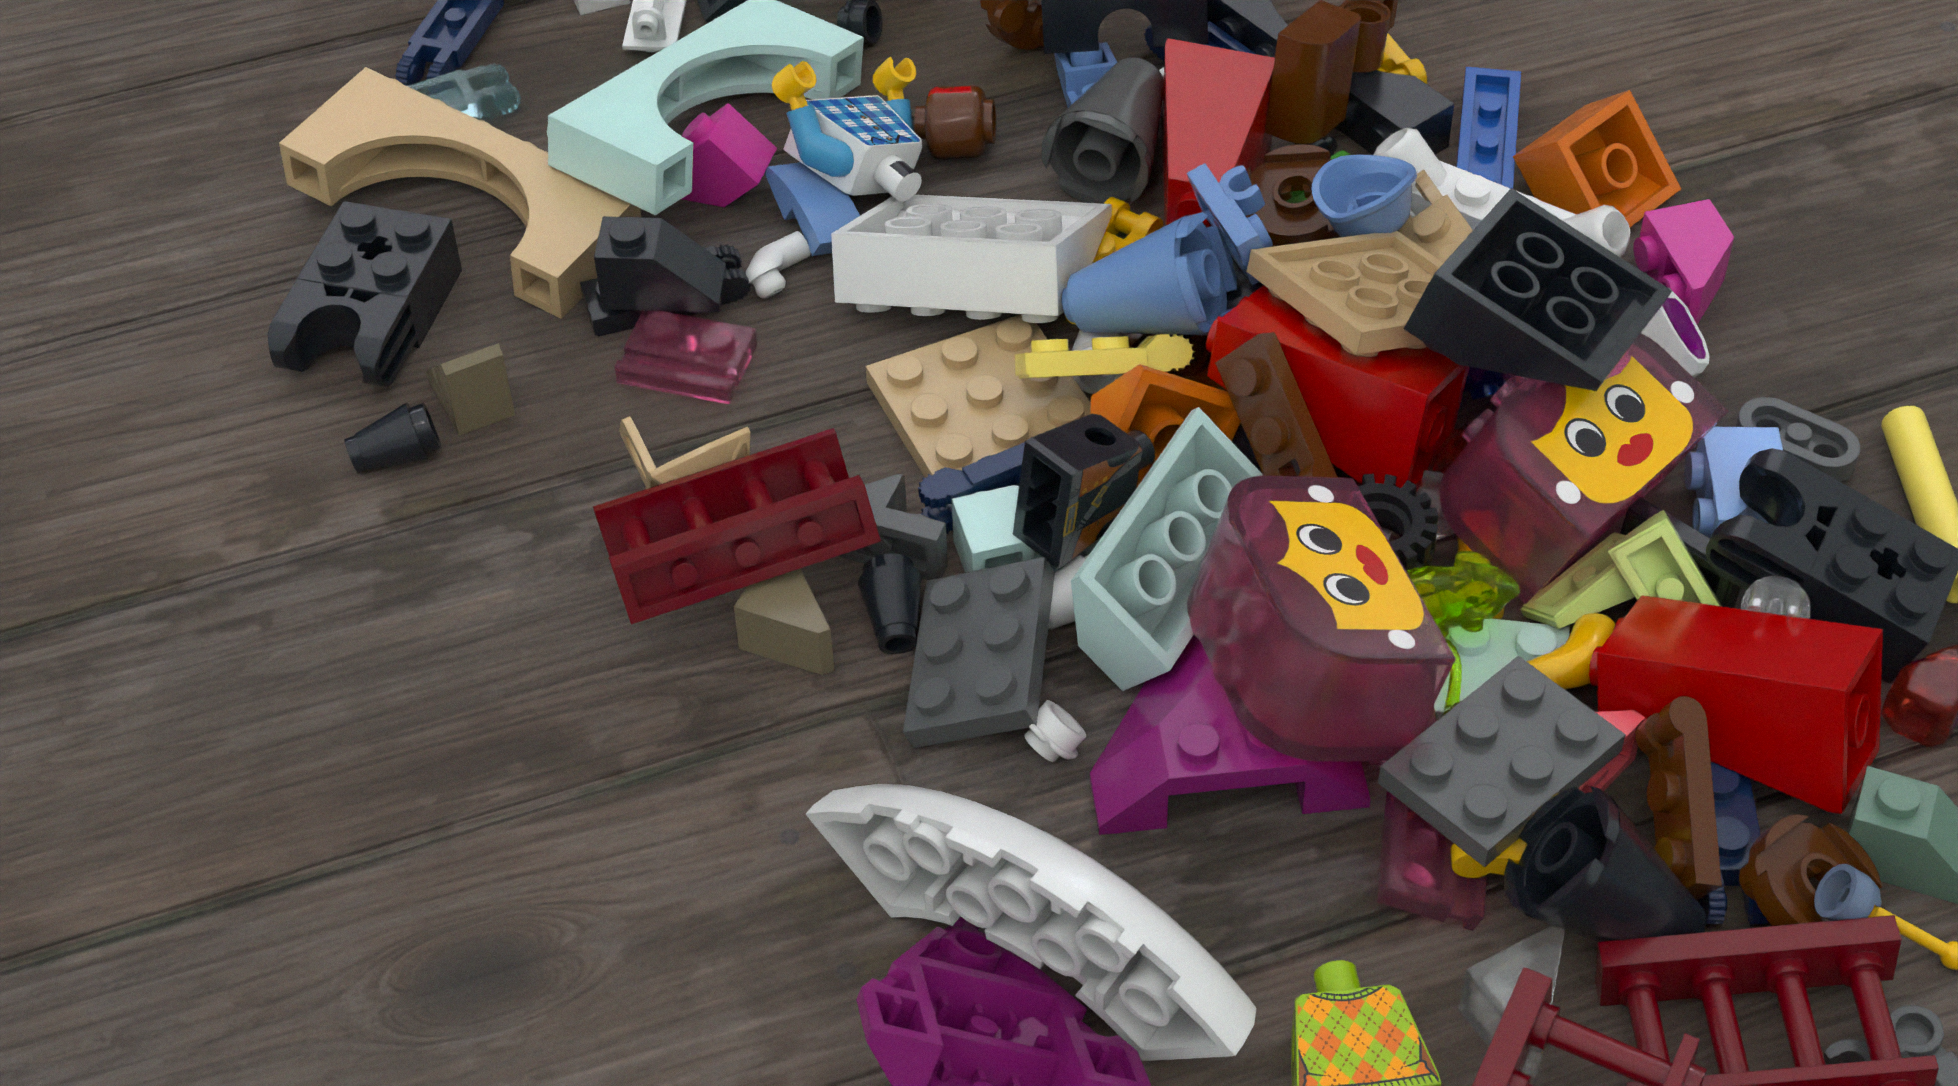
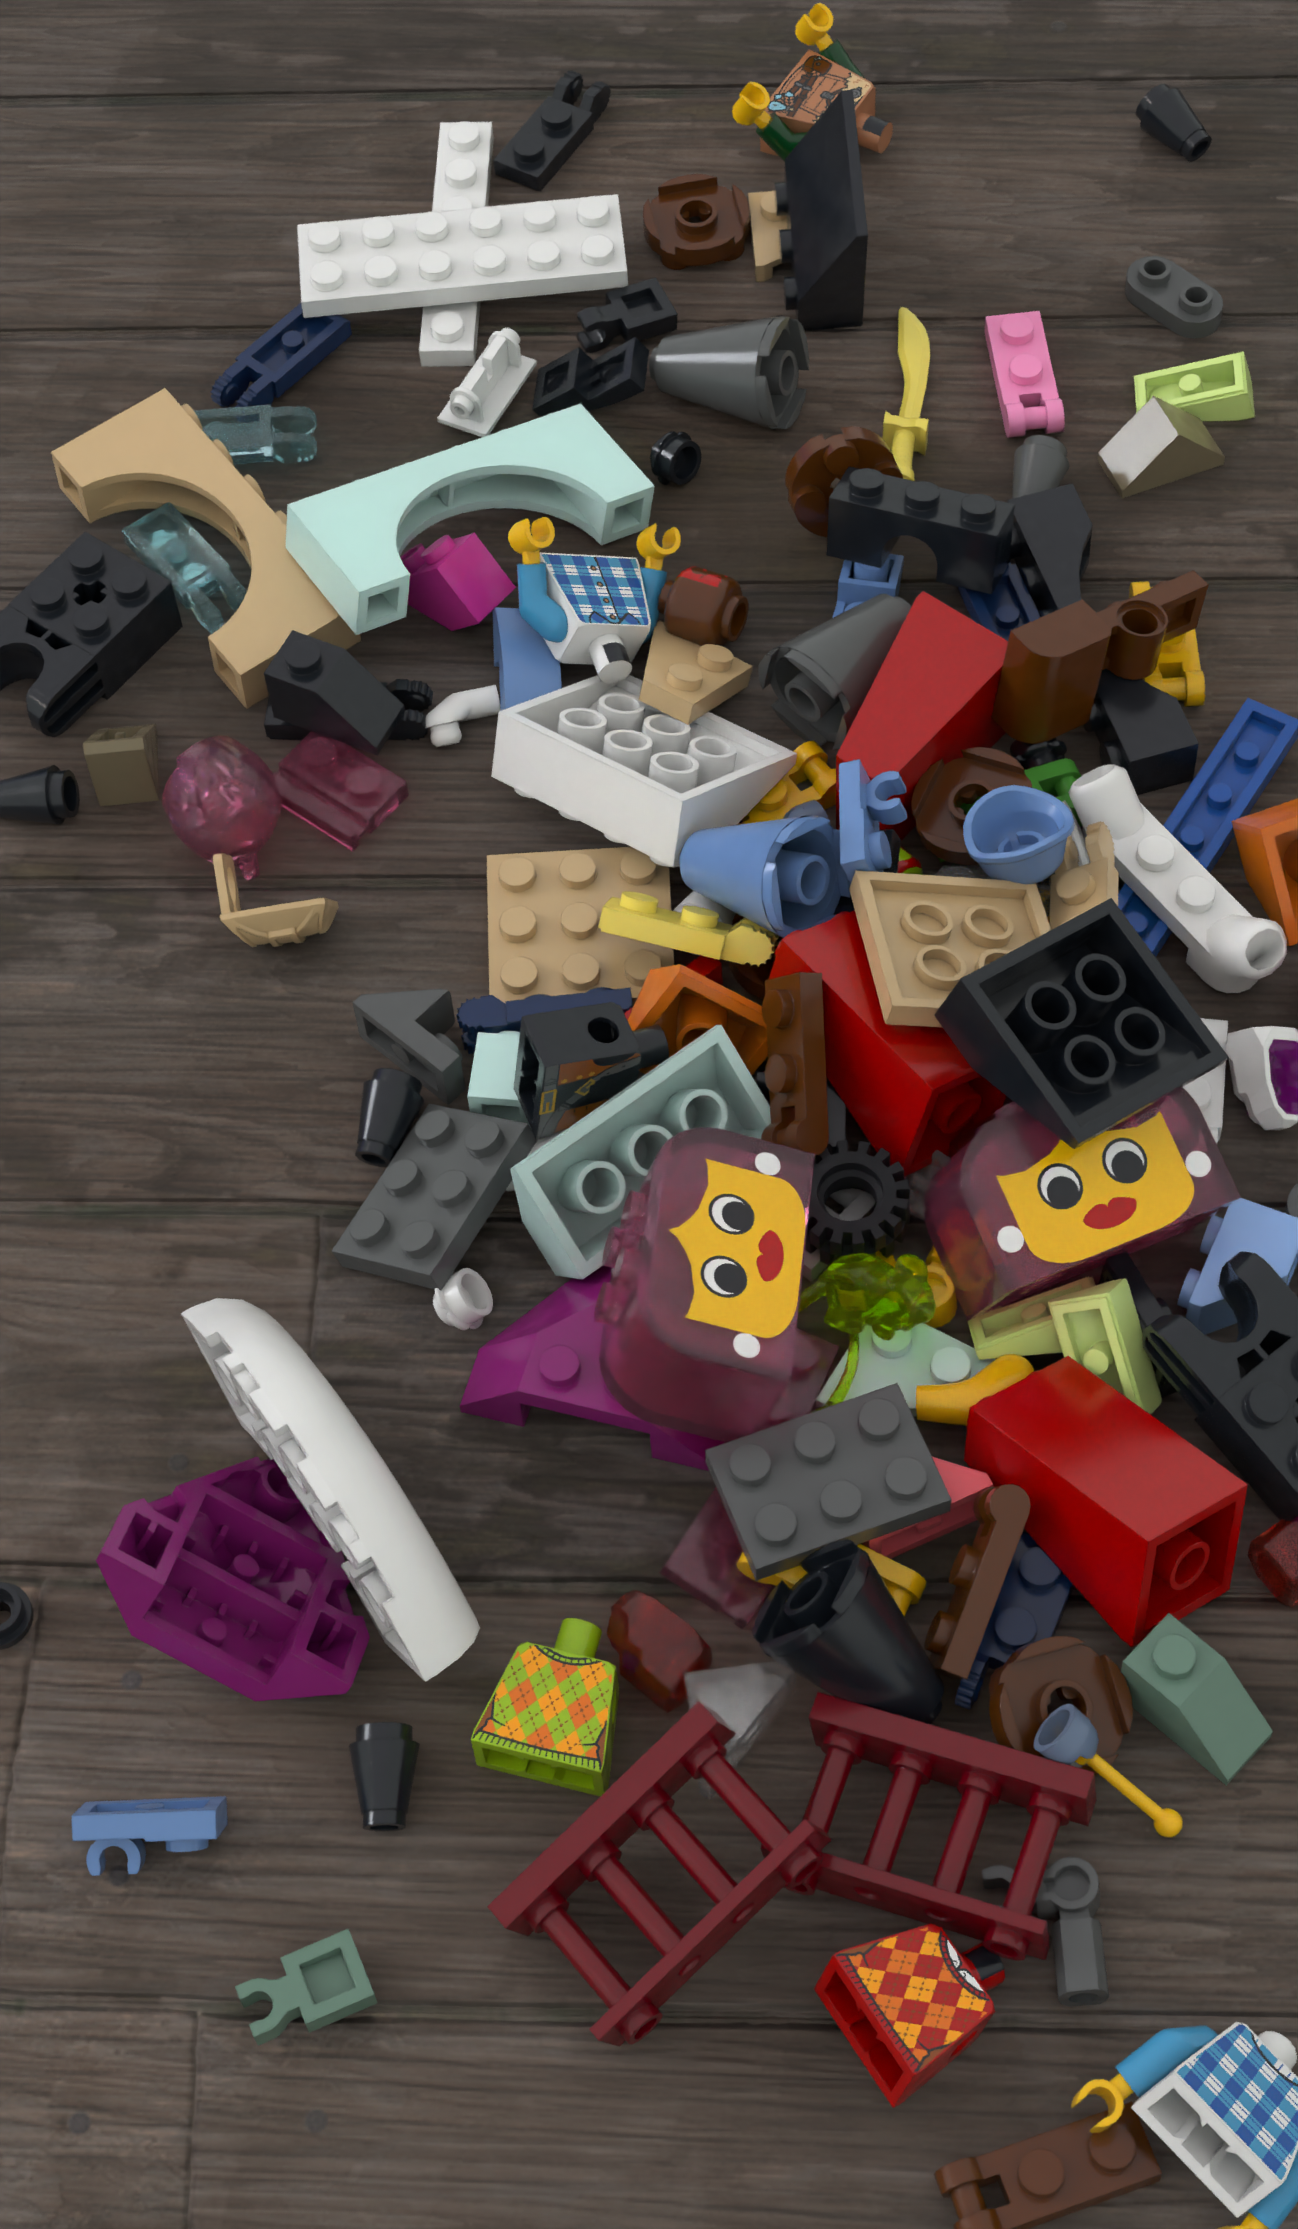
camera: 25 degrees right, 10 degrees up
(469, 214) = (185, 558): none -> clear light blue hinge
(594, 382) = (223, 801): none -> clear pink helmet
(735, 525) = (269, 1026): dark red fence -> none
(784, 623) = (280, 1092): dark tan slope -> none
(972, 178) = (689, 677): none -> tan wing
(1418, 959) = (655, 1648): none -> clear red rock
(1777, 596) = (1185, 1412): clear plate -> none

